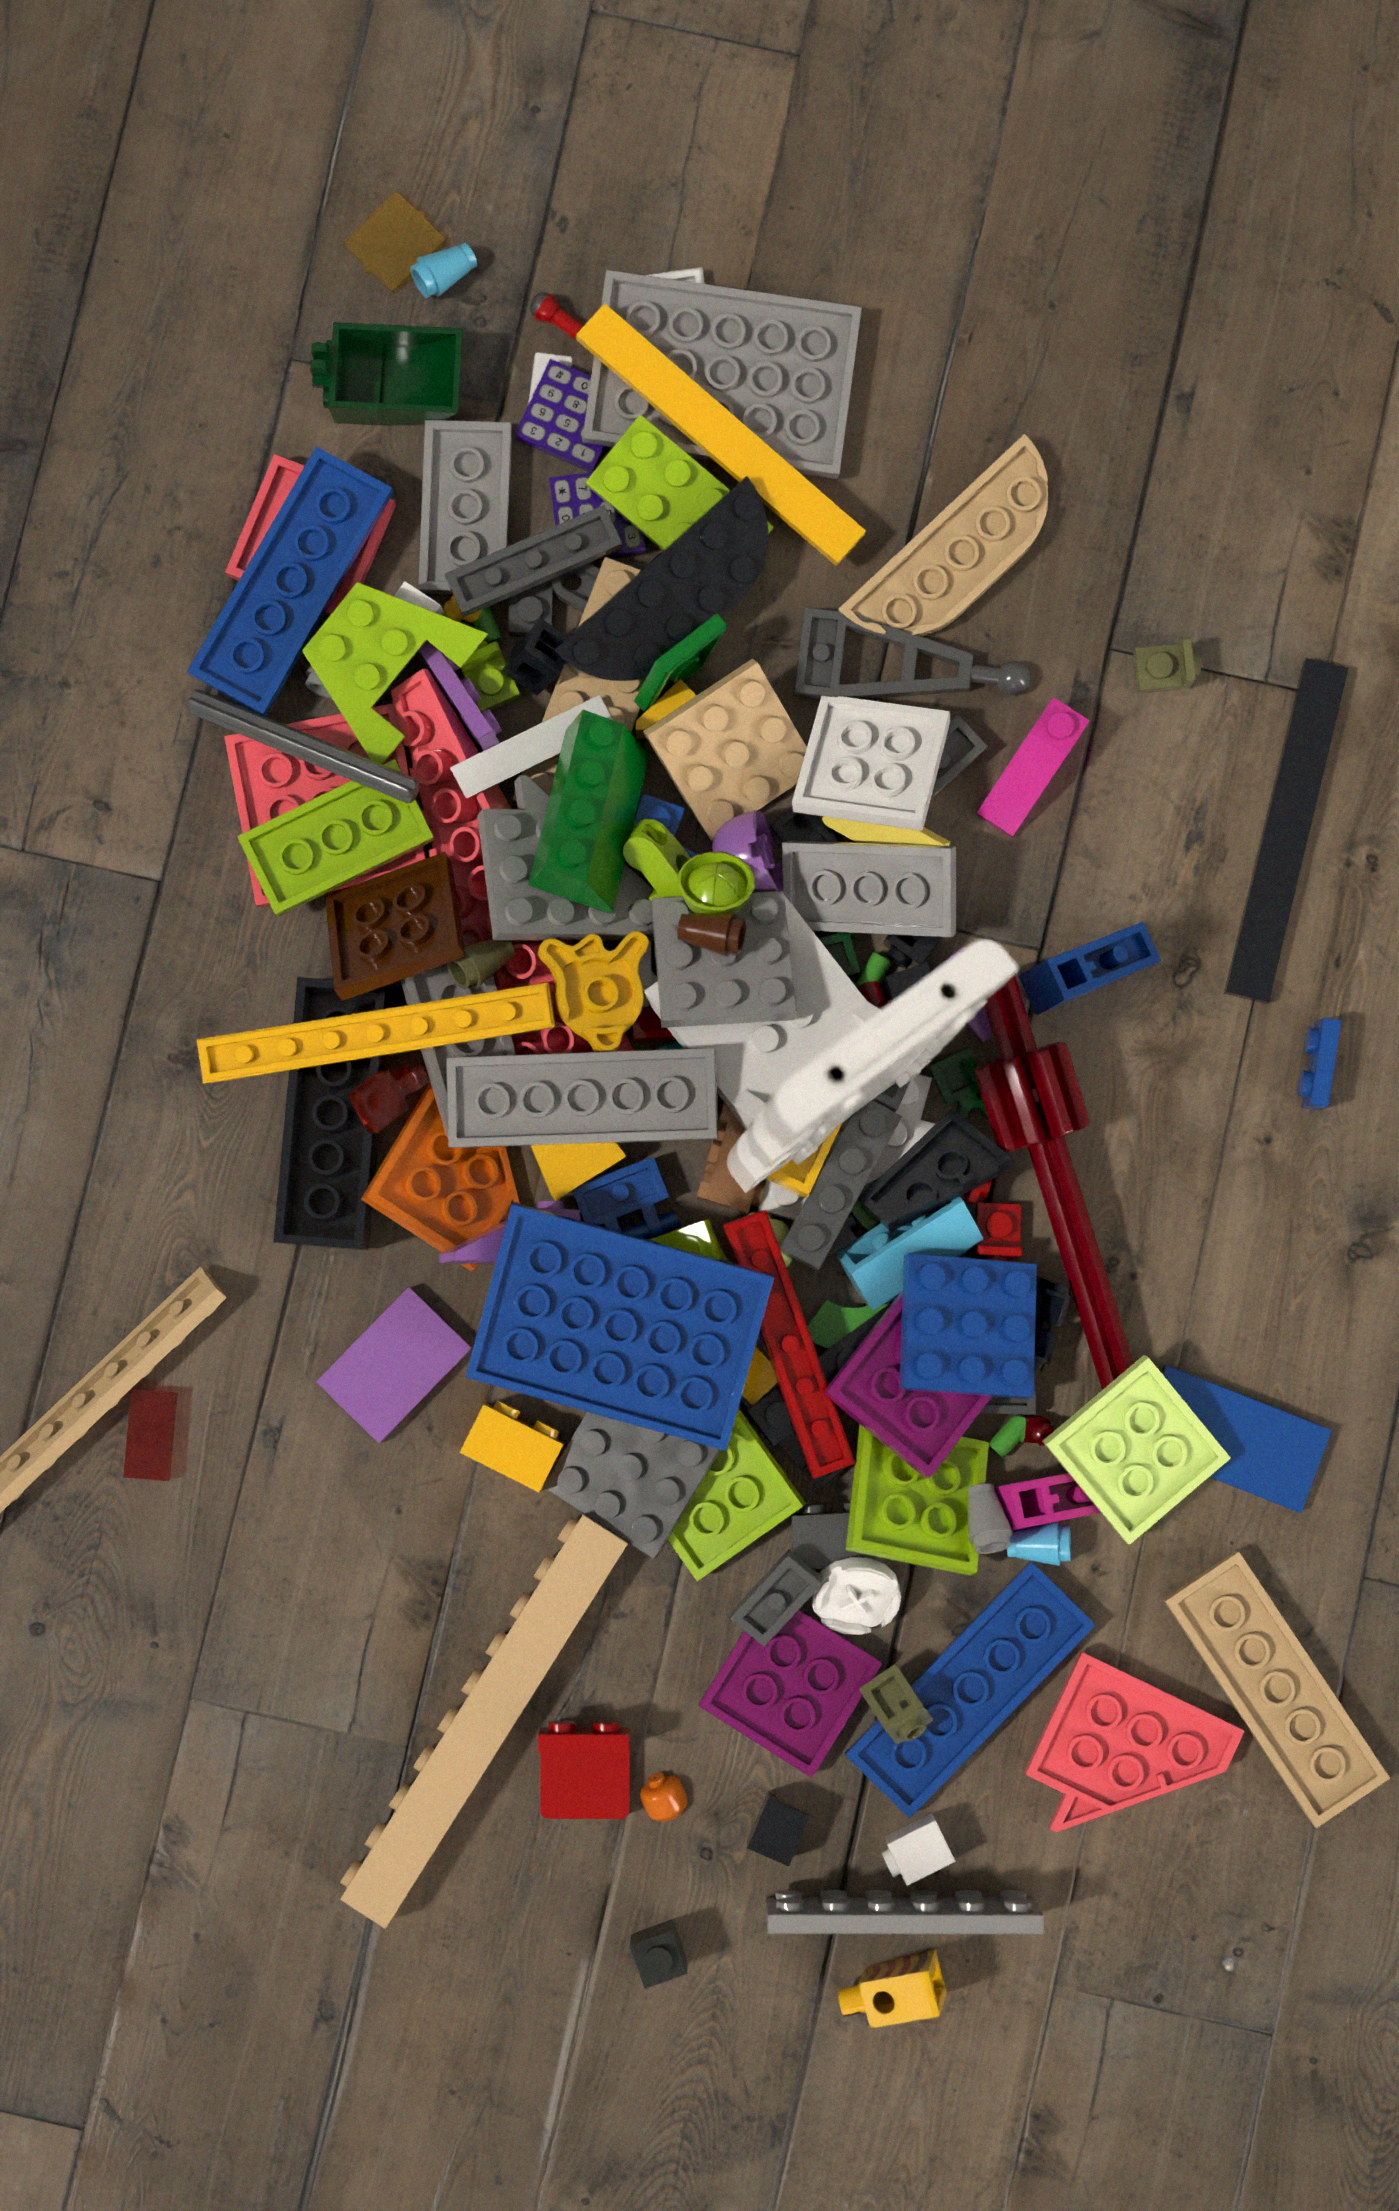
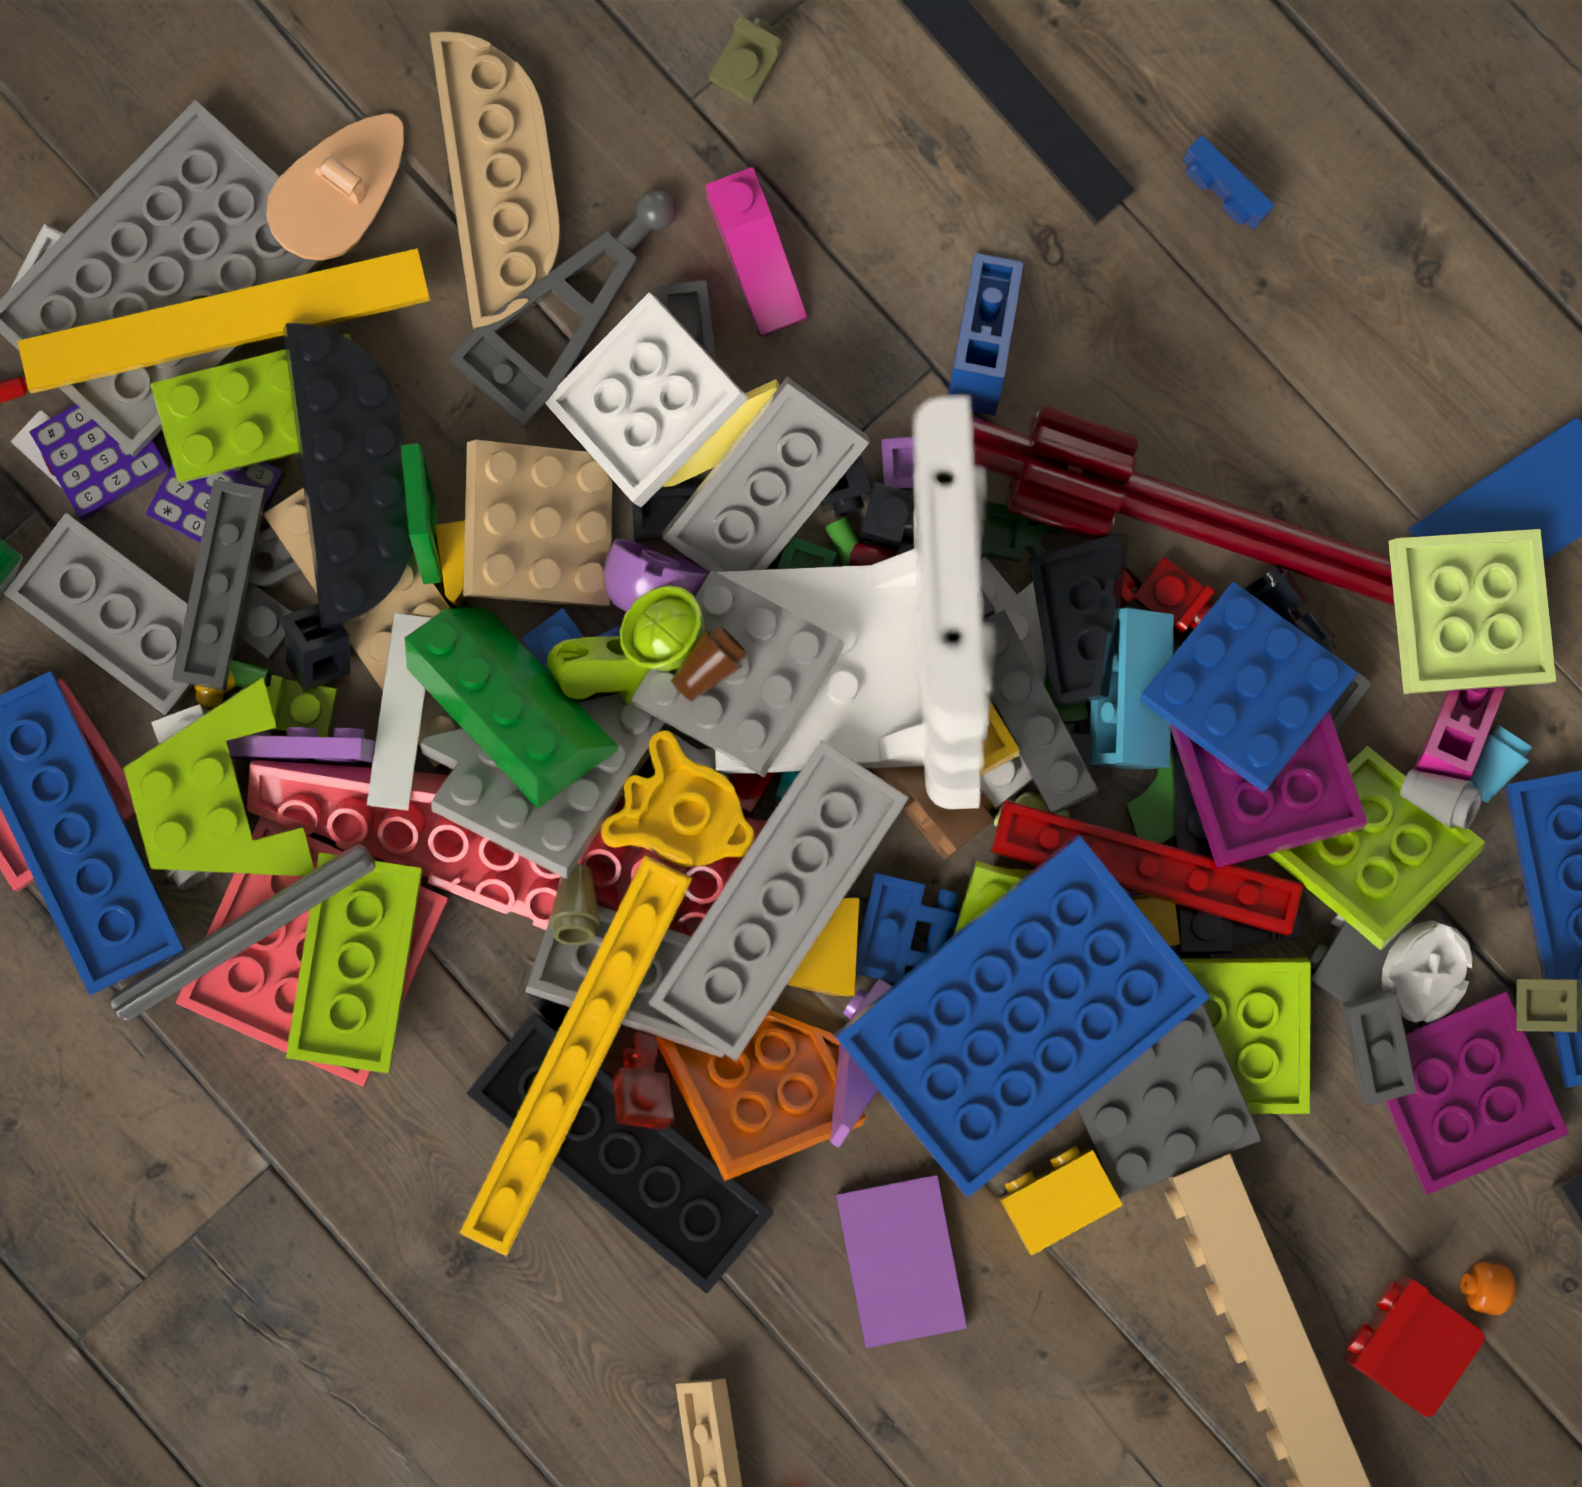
camera: 60 degrees left, 0 degrees up
(394, 926) = (483, 966): reddish brown plate -> none
(869, 447) = (336, 189): none -> light nougat shield
(1021, 1429) = (1376, 705): arm -> none

